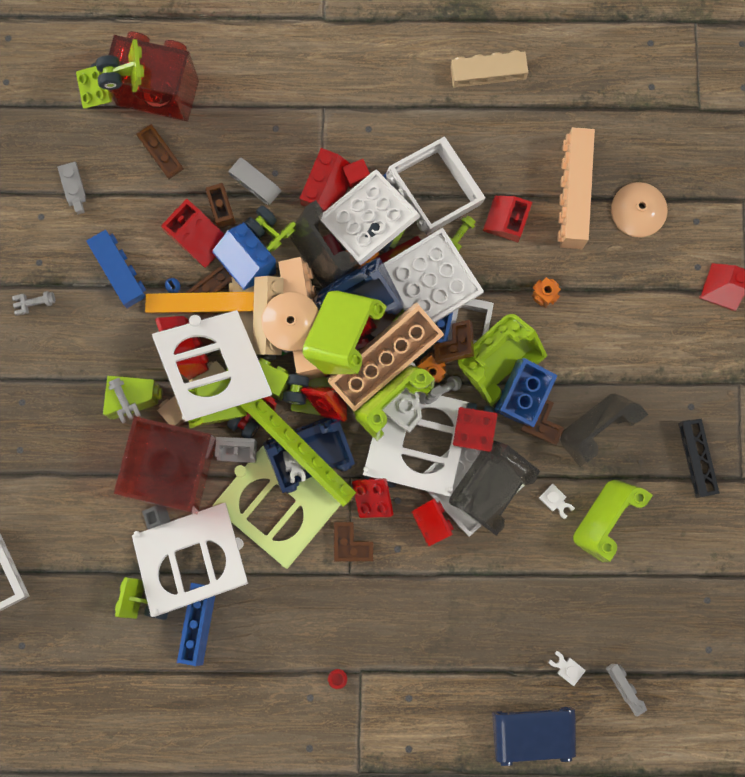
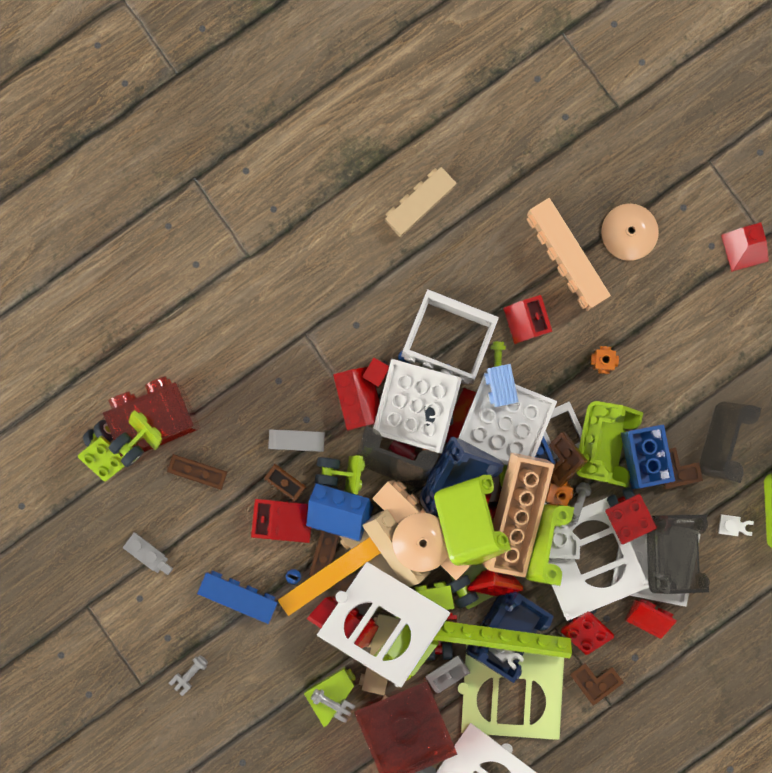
camera: 35 degrees left, 5 degrees up
(448, 245) = (502, 385): none -> light blue brick

